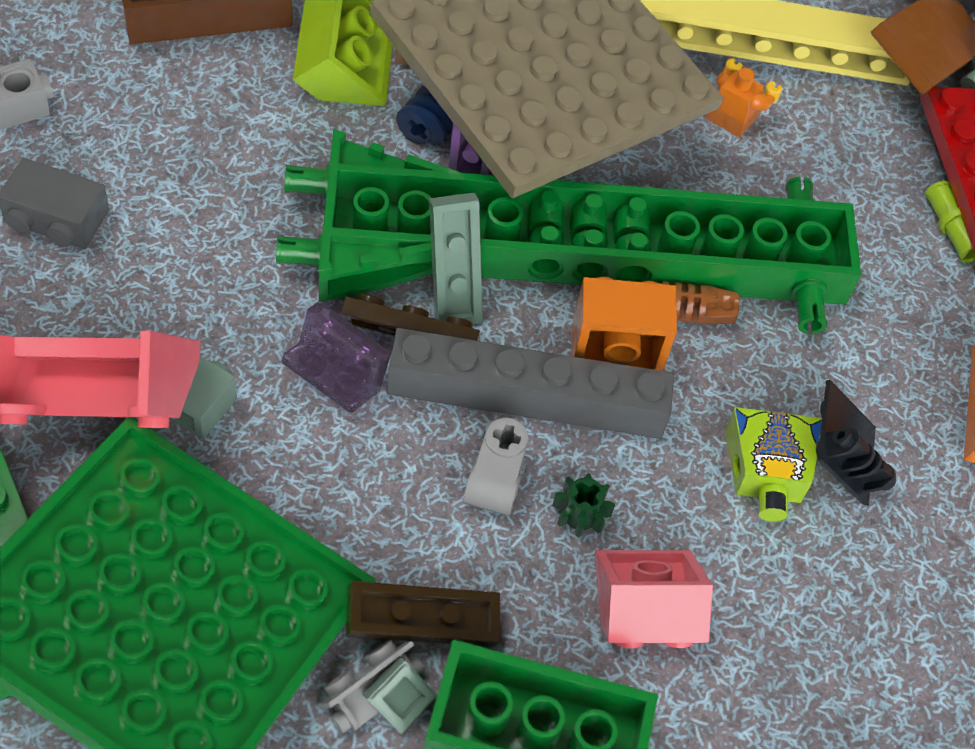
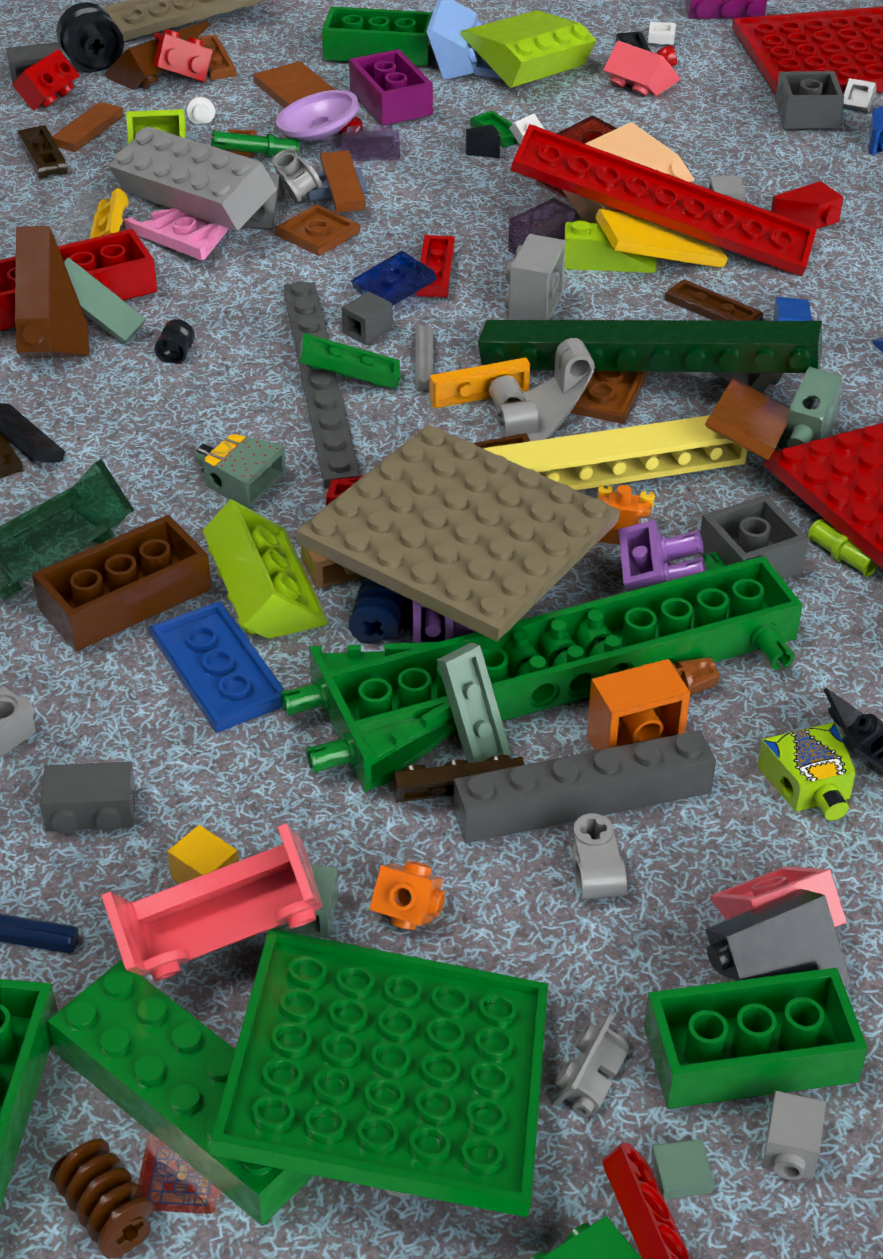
camera: 15 degrees left, 15 degrees down
(119, 310) = (199, 854): none -> yellow brick
(253, 111) = (218, 666): none -> blue tile
(291, 429) = (408, 894): none -> orange brick
(338, 358) = (413, 824): clear purple bracket -> none
(400, 694) = (622, 1062): sand green tile -> none
(422, 614) = (596, 992): dark brown plate -> none
(583, 504) = (682, 861): dark green gear -> none
(617, 640) = (778, 939): none -> slope
(736, 157) = (649, 554): none -> medium lavender brick
(860, 172) = (754, 531): none -> dark grey brick

